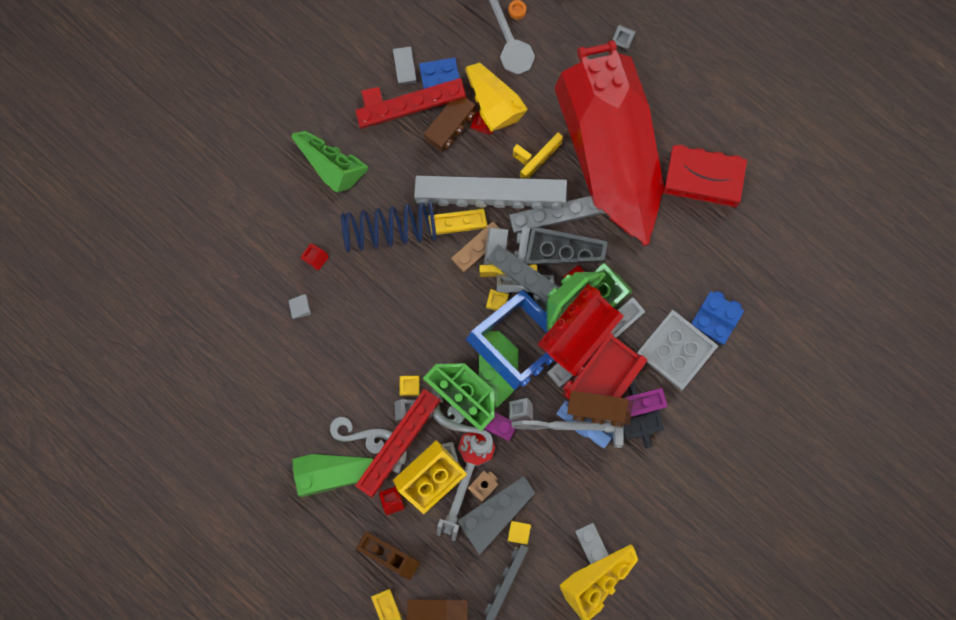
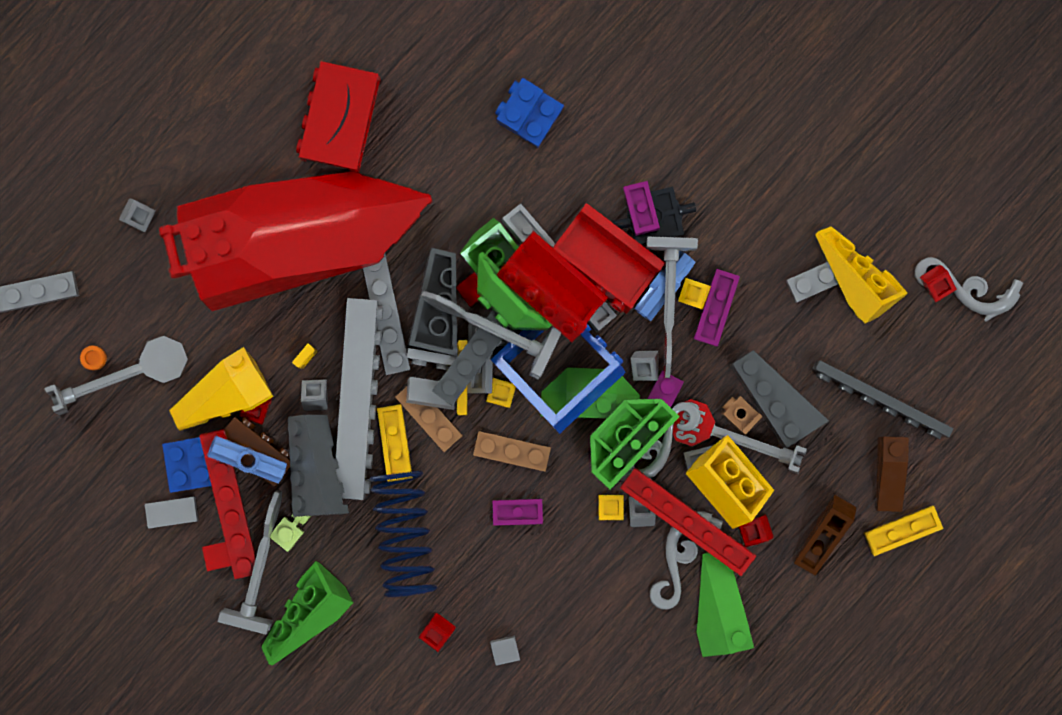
camera: 90 degrees left, 10 degrees up
(326, 118) = (246, 617): none -> light grey piece
(389, 147) = (288, 533): none -> yellowish green plate
(405, 314) = (517, 512): none -> magenta plate
(438, 160) = (313, 468): none -> dark grey wedge
(447, 98) = (262, 465): none -> medium blue piece
(452, 309) = (512, 451): none -> medium nougat plate
(493, 163) = (314, 395): none -> light grey slope
(519, 532) = (797, 371): yellow tile -> none
(529, 323) = (540, 351): none -> light grey piece
(541, 157) = (308, 330): yellow tile -> none
(568, 466) = (716, 308): none -> magenta plate
(579, 448) = (694, 293): none -> yellow plate
(600, 409) = (653, 265): reddish brown brick -> none
(677, 350) = (570, 165): light grey plate -> none

